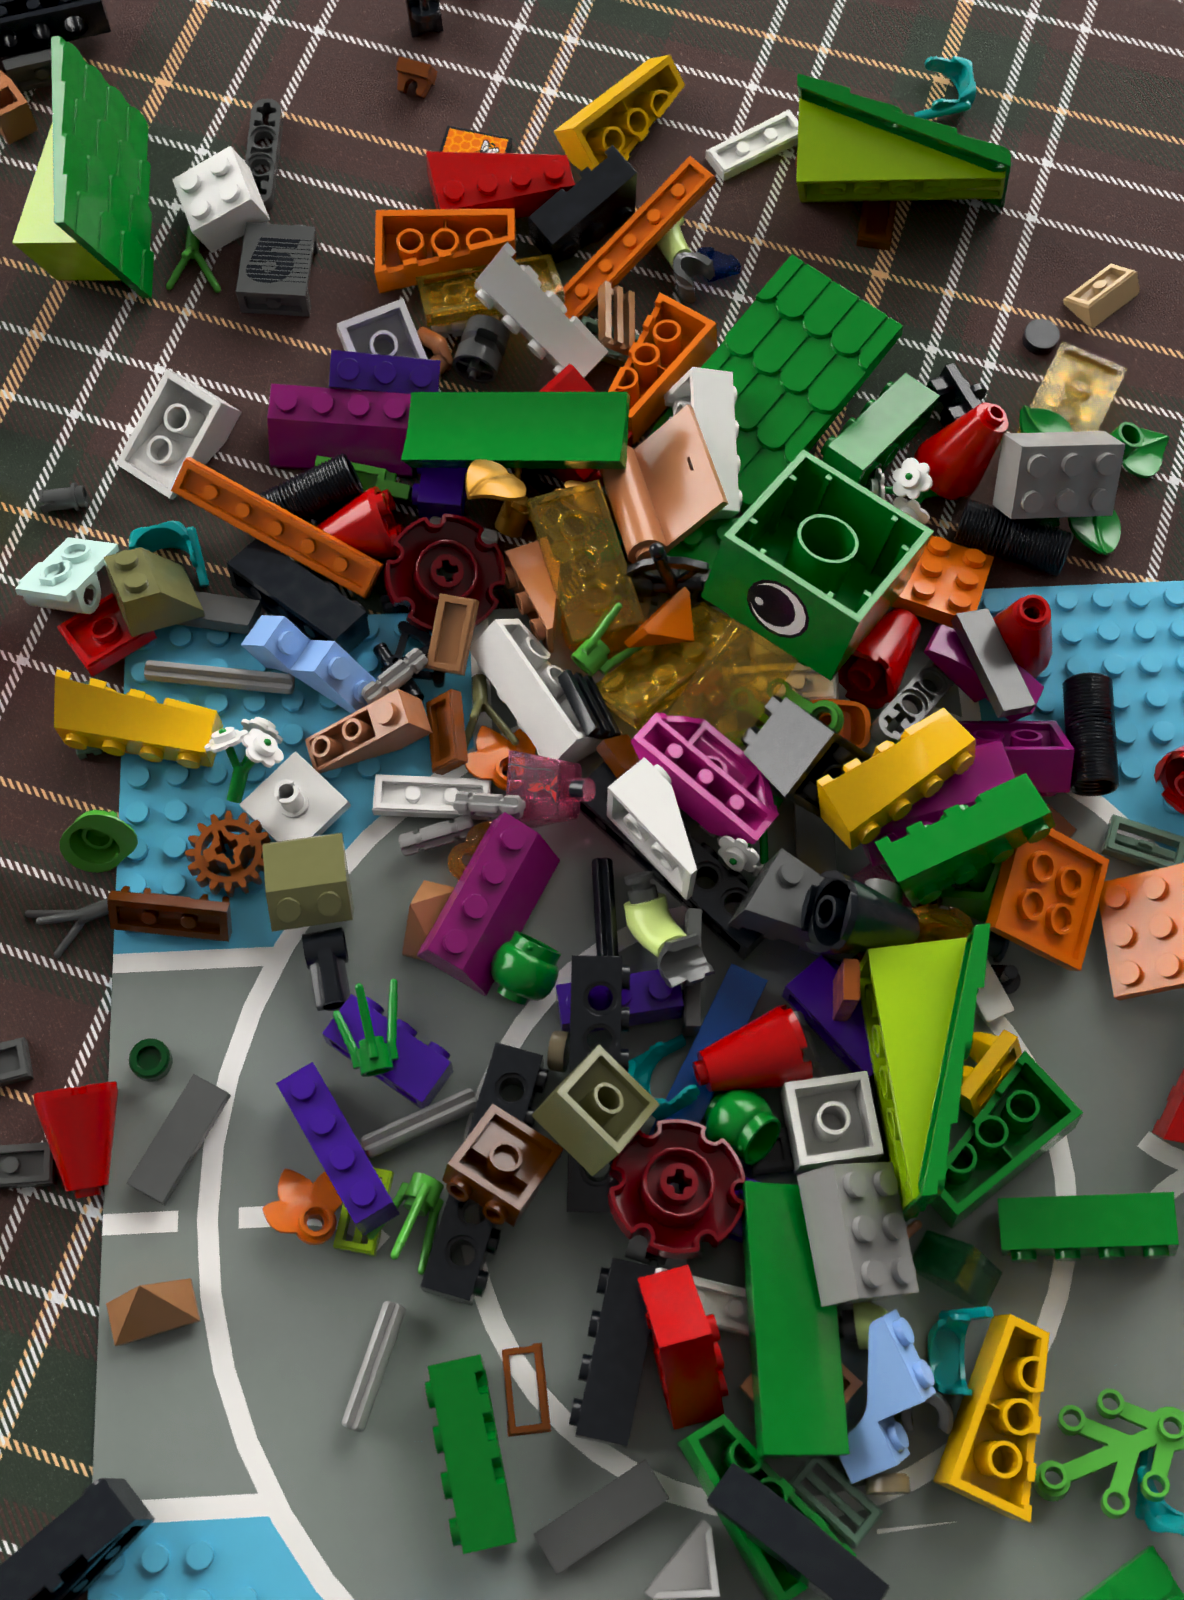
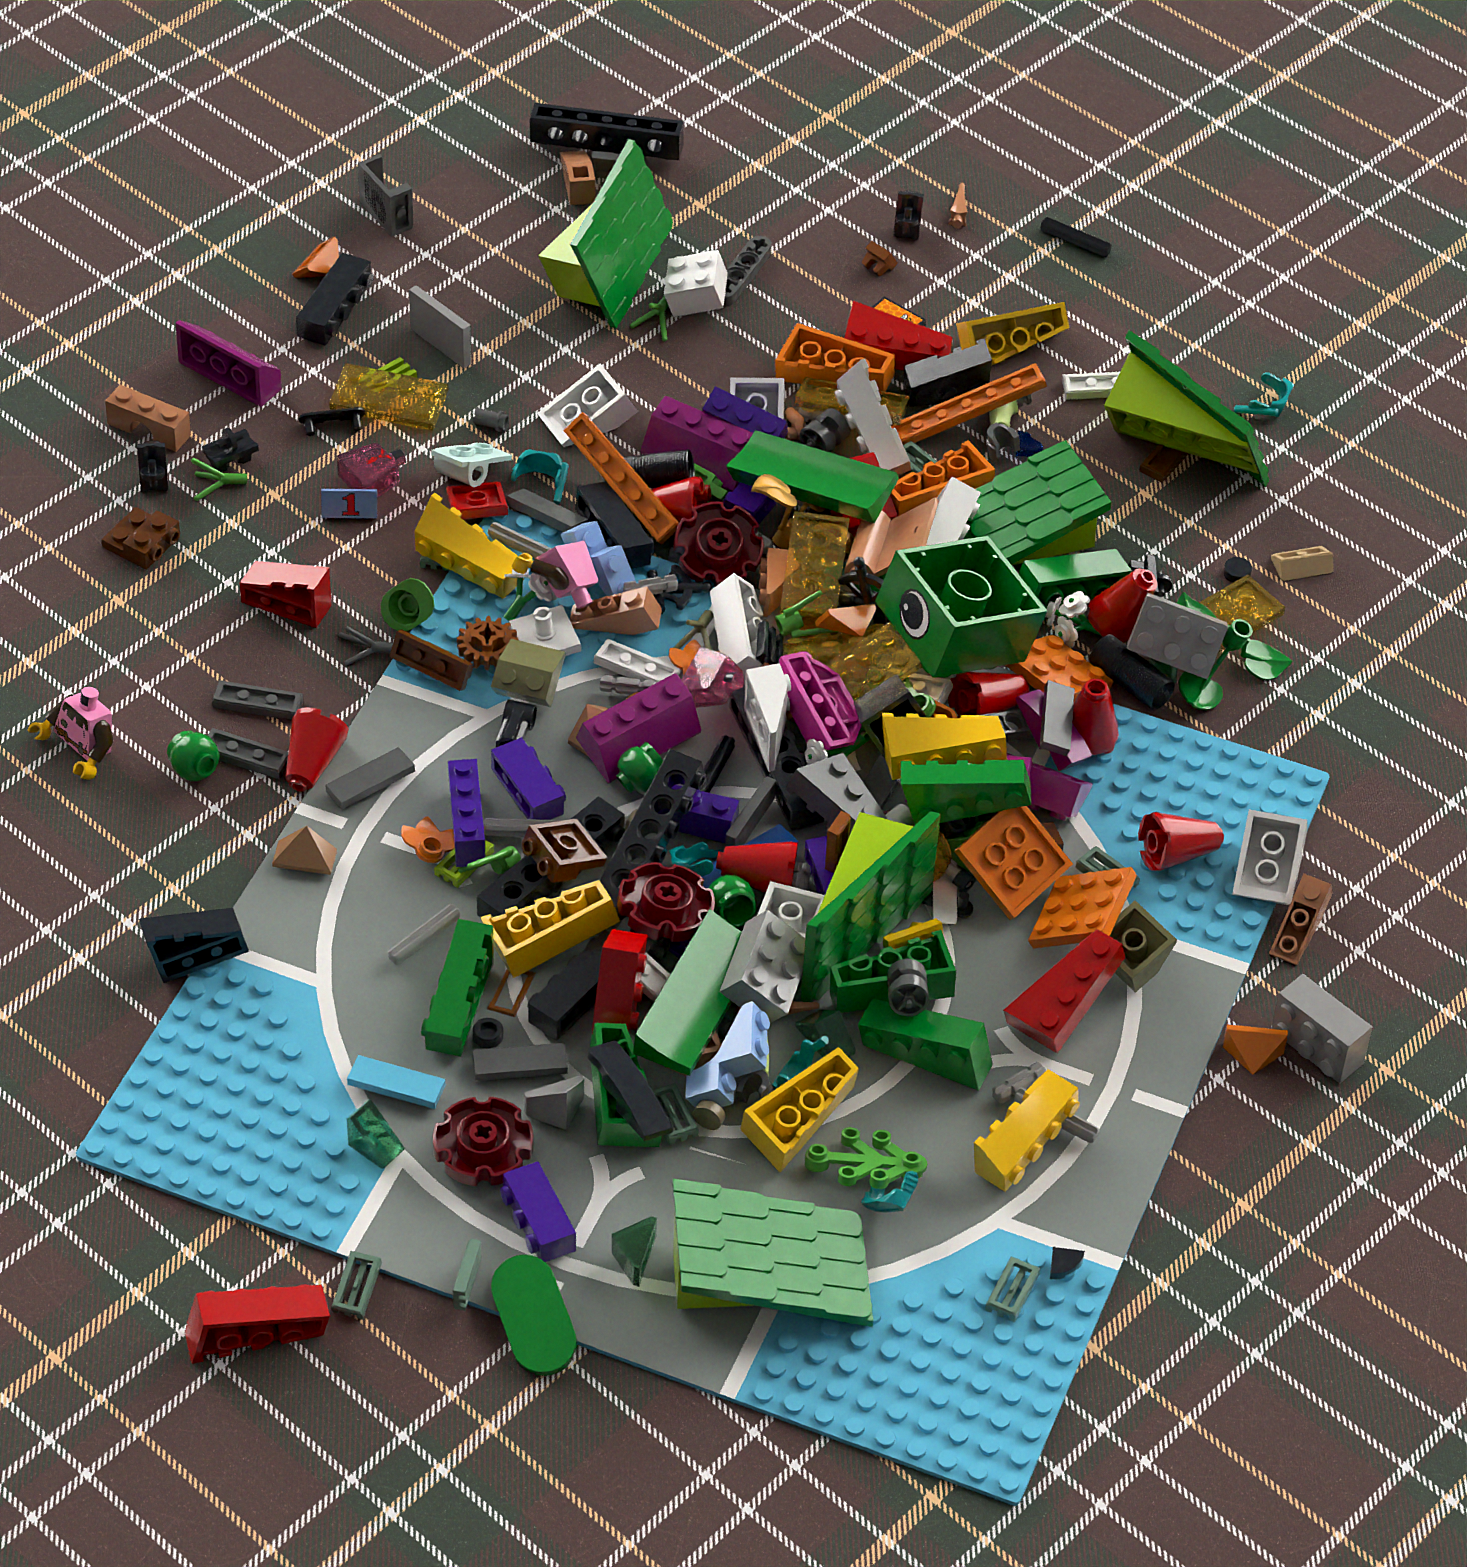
camera: 25 degrees right, 20 degrees down
(150, 1060) = (375, 732): dark green tile -> none
(151, 590) = (518, 483): olive slope -> none
(276, 269) = (709, 338): dark grey panel -> none
(281, 712) = (565, 568): none -> bright pink torso
(374, 1055) = (517, 768): green plant -> none
(448, 732) = (668, 631): dark orange tile -> none
(452, 634) = (702, 576): medium nougat tile -> none
(489, 804) = (661, 671): light grey axle -> none
(535, 1487) = (487, 1032): none -> black tile
(537, 1295) = (550, 926): none -> yellow wedge
(596, 1110) = (637, 835): olive slope -> none
(622, 321) = (938, 436): medium nougat tile -> none
(654, 928) = (741, 779): piece -> none
(853, 917) = (865, 793): black cone -> none
(1054, 1187) = (907, 987): none -> dark grey wheel
(1090, 702) = (1107, 793): black piece -> none

